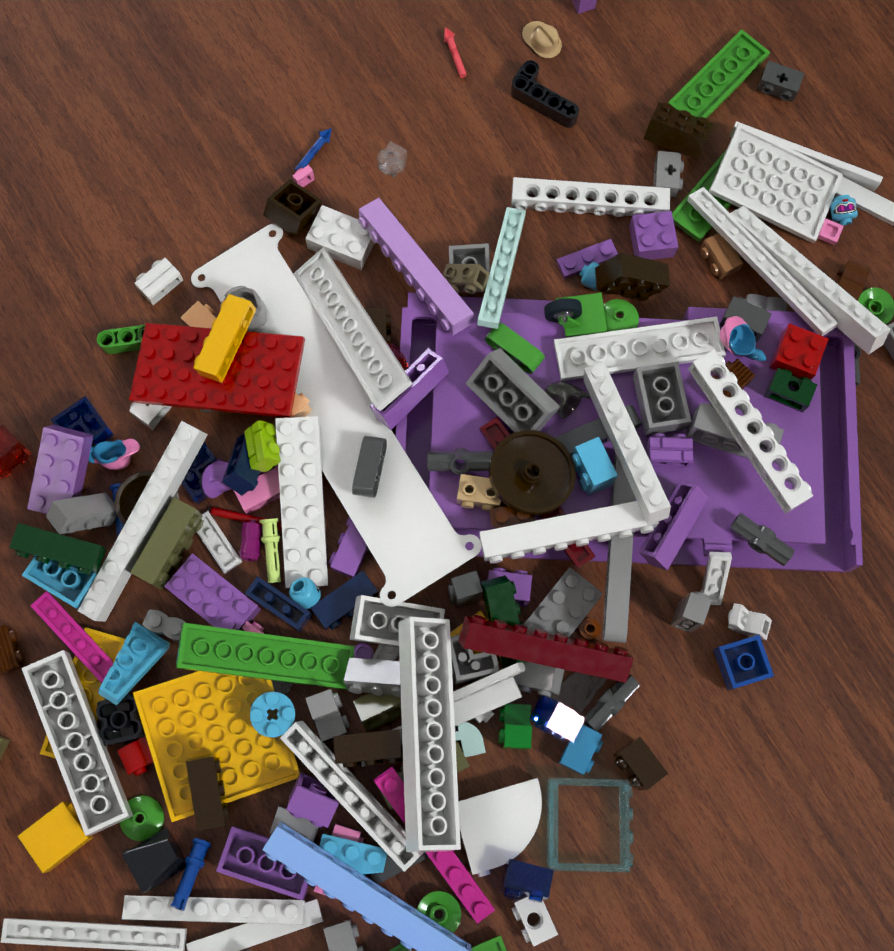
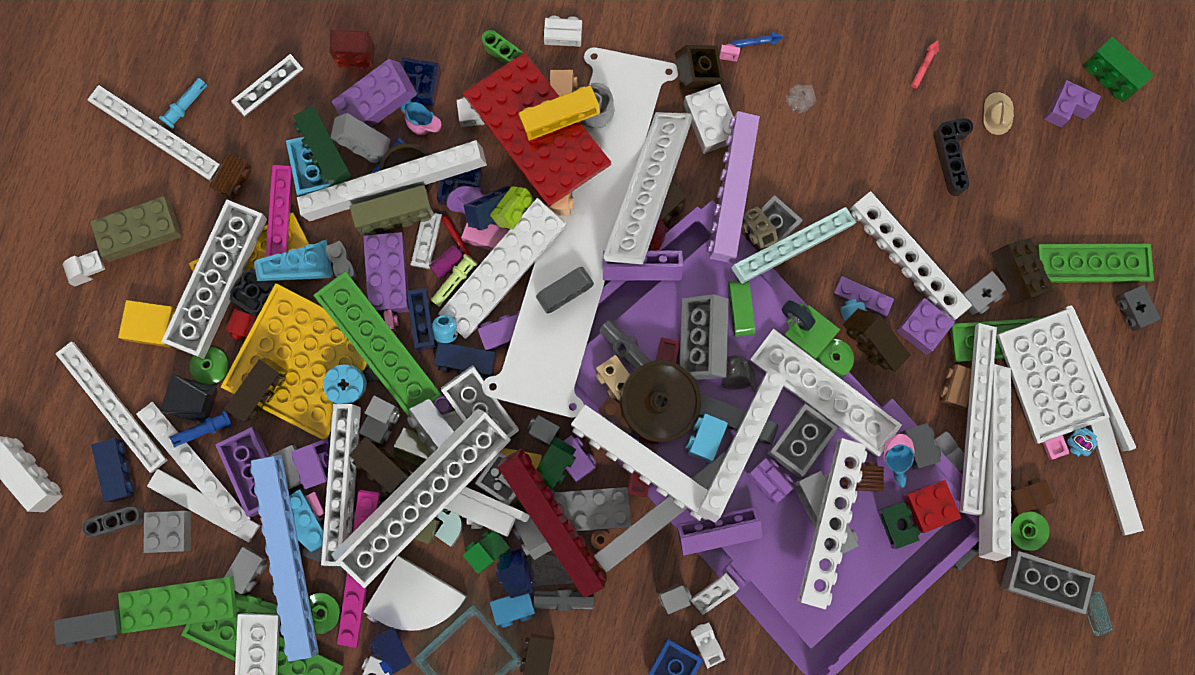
camera: 45 degrees right, 5 degrees up
(762, 539) = (769, 601): dark grey piece -> none

